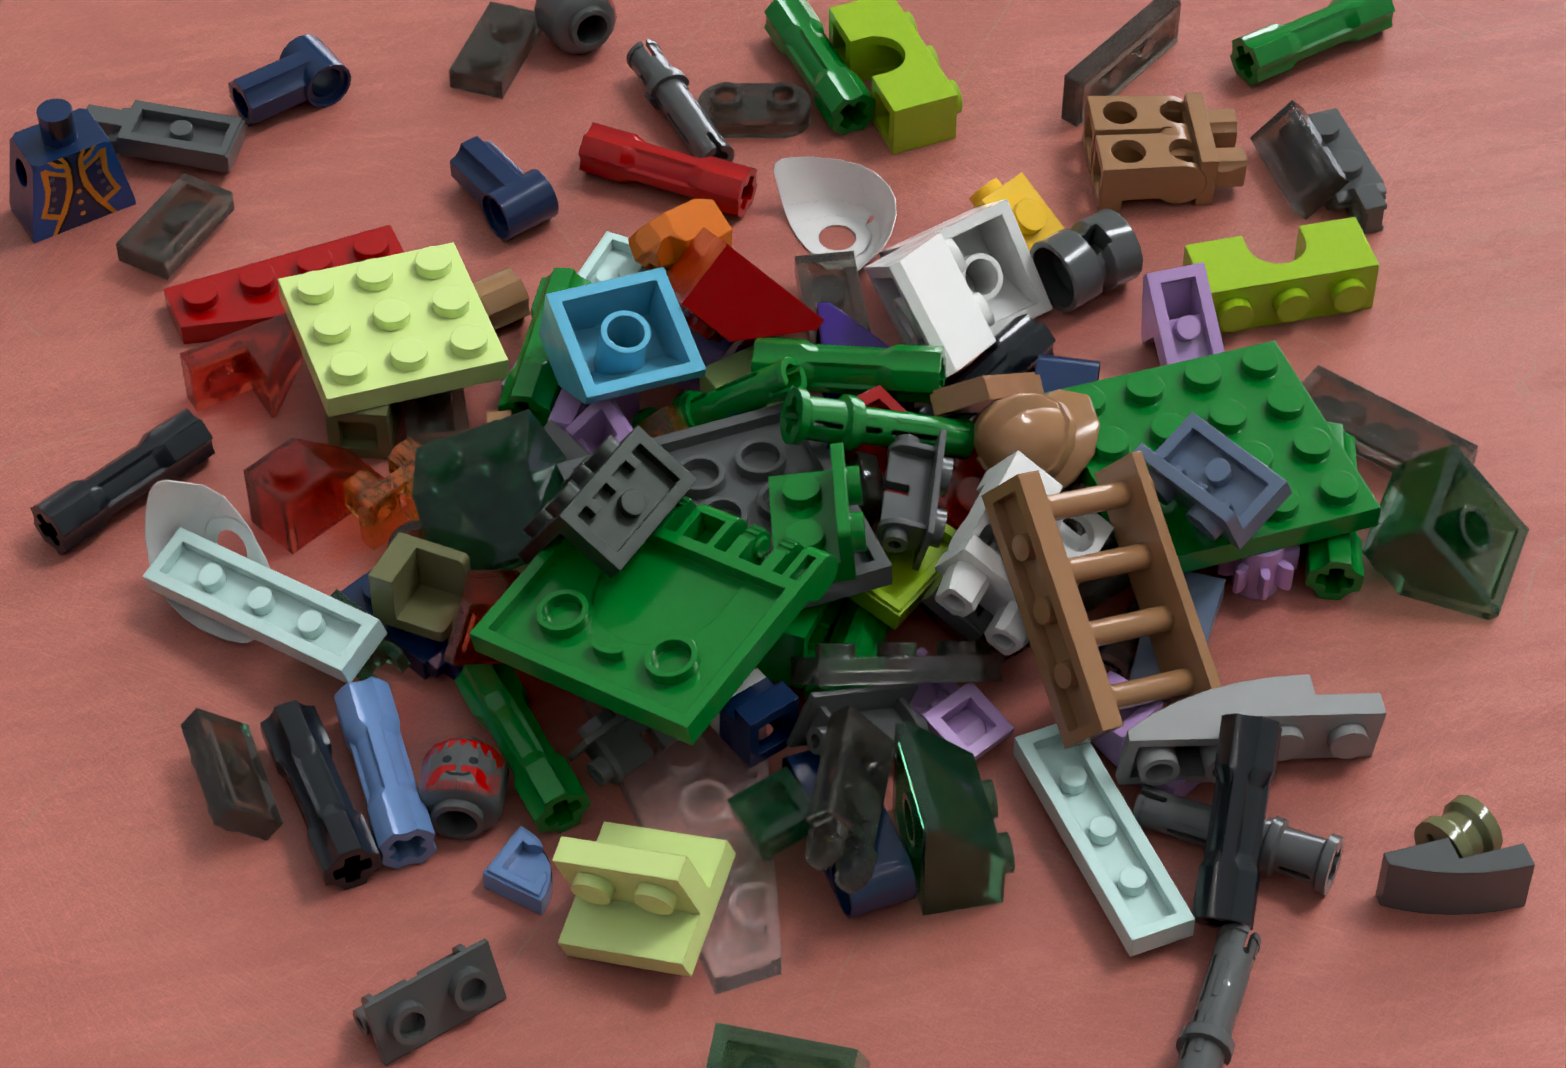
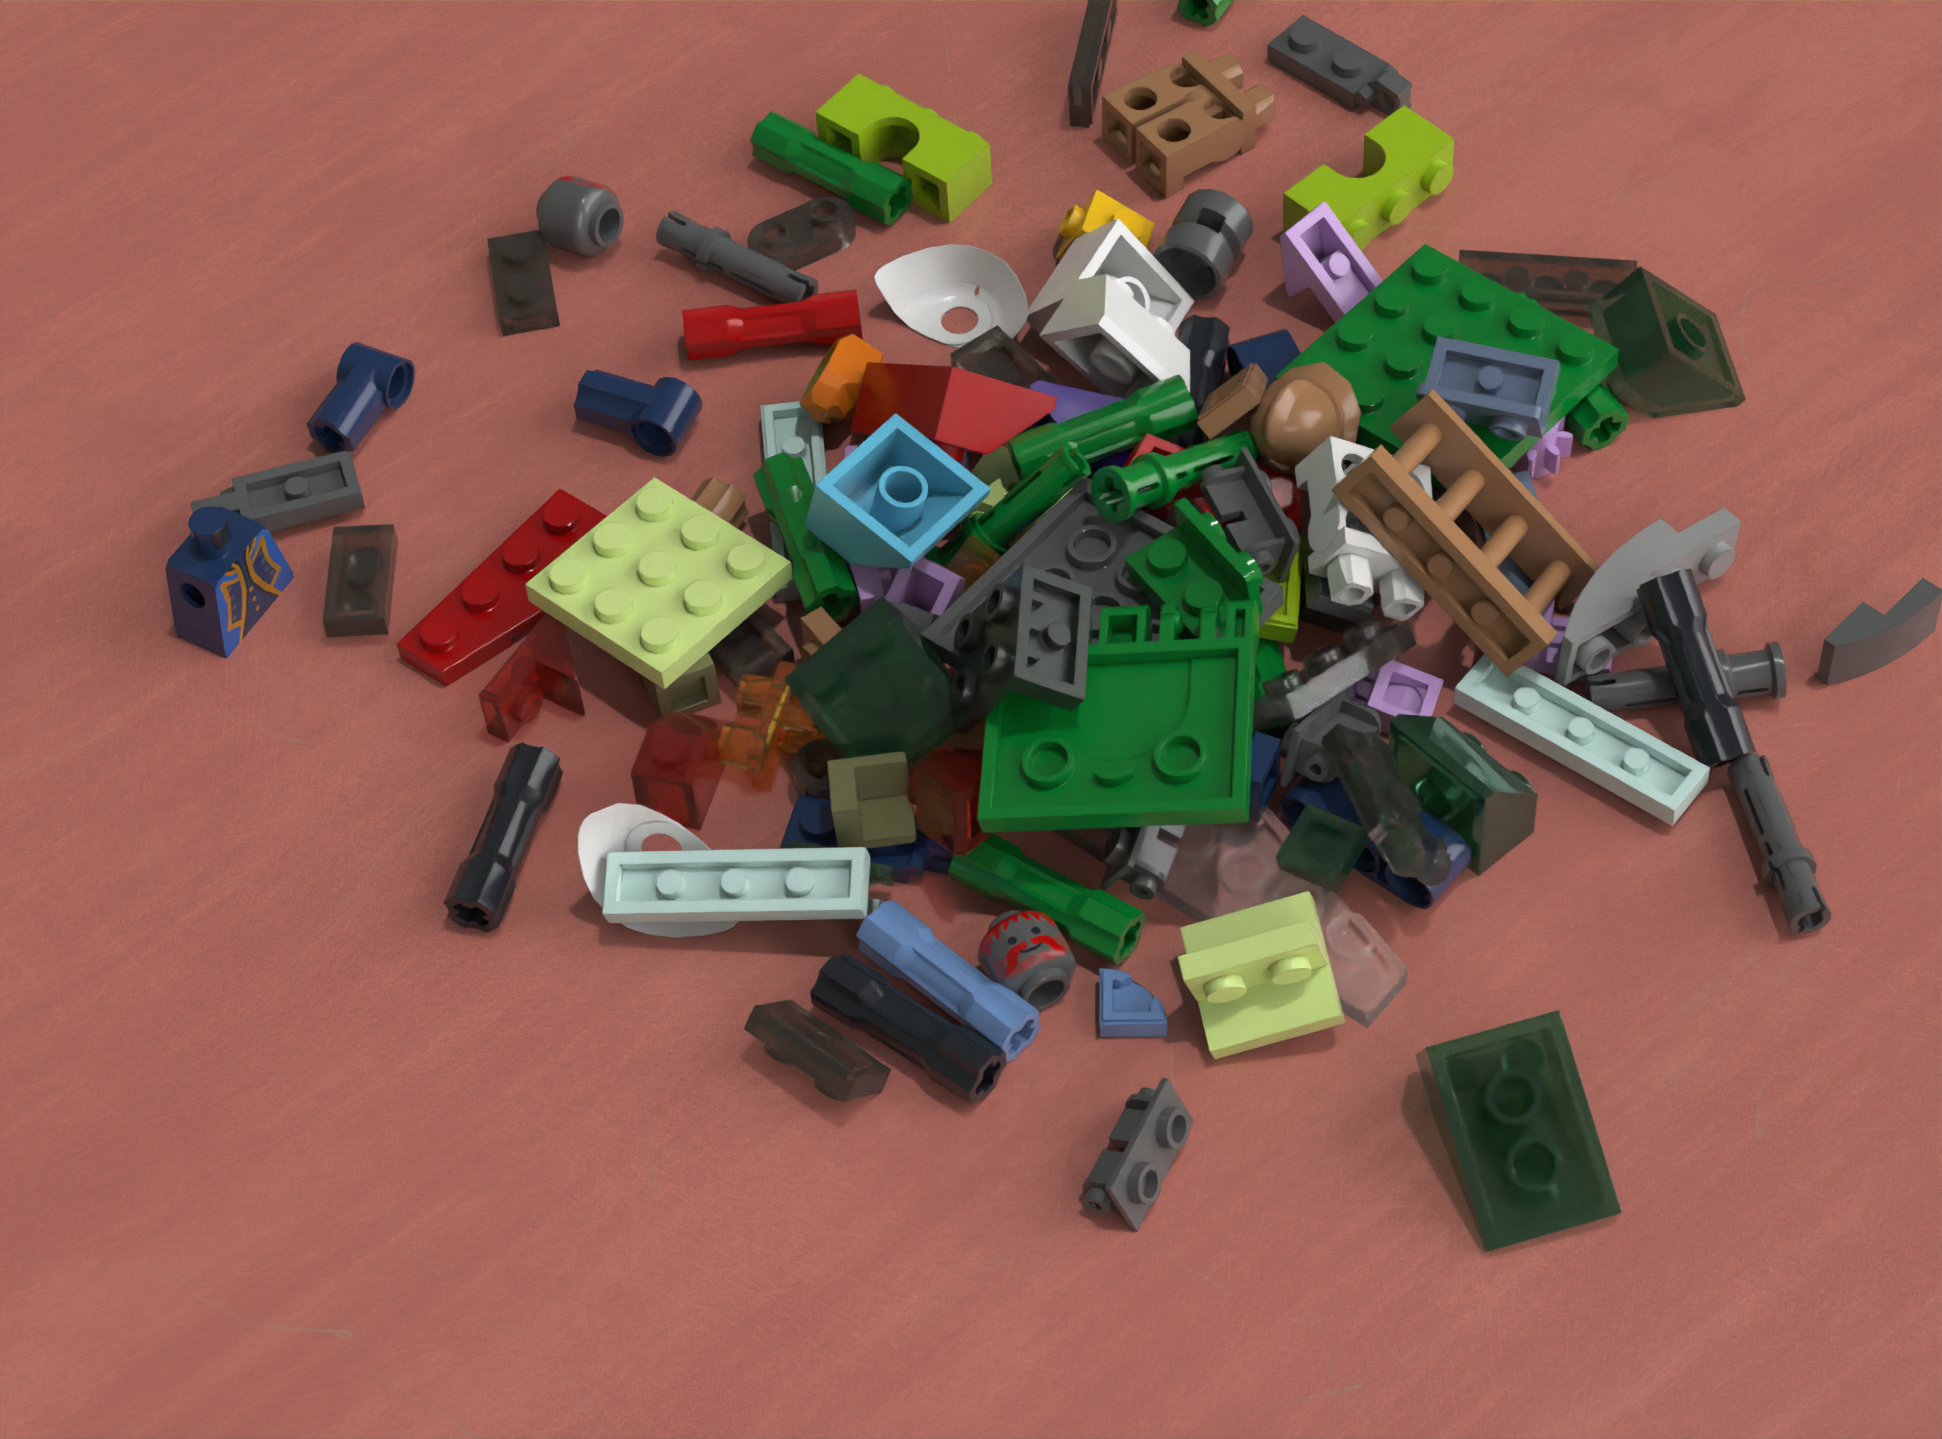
camera: 25 degrees left, 5 degrees up
(1299, 160) = (1308, 75): clear smoke tile -> none
(1466, 824) = (1855, 583): olive wheel -> none

